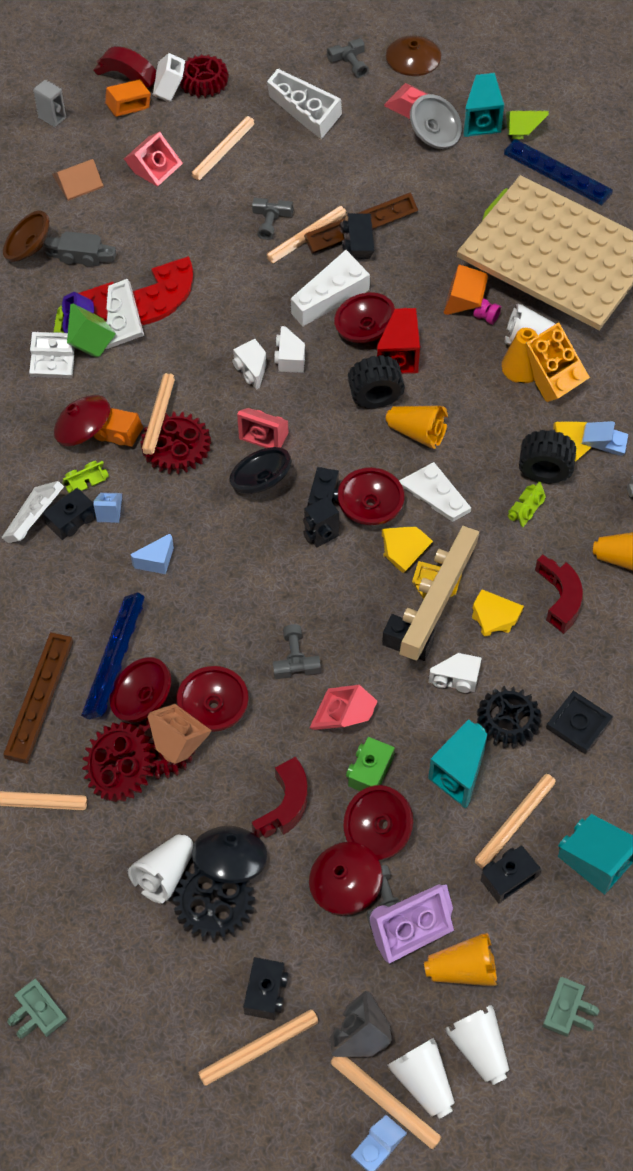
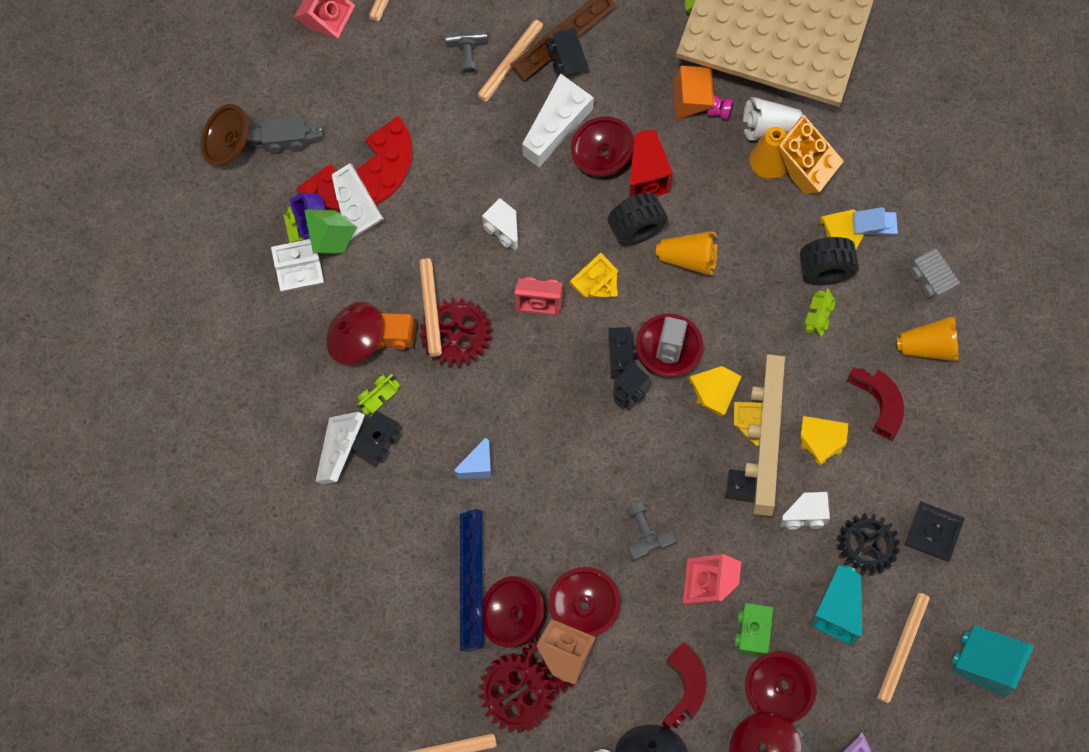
camera: 15 degrees left, 10 degrees up
(38, 698) = (412, 644): reddish brown plate -> none
(78, 179) = (252, 50): nougat slope -> none
(108, 507) = (411, 419): light blue slope -> none
(260, 470) = (552, 344): black dish -> none
(291, 352) = (539, 202): white slope -> none
(323, 428) = (597, 279): none -> yellow slope
(370, 485) = (671, 340): none -> light grey brick
(437, 491) = (727, 319): white wing -> none
(509, 873) = (915, 703): black brick -> none

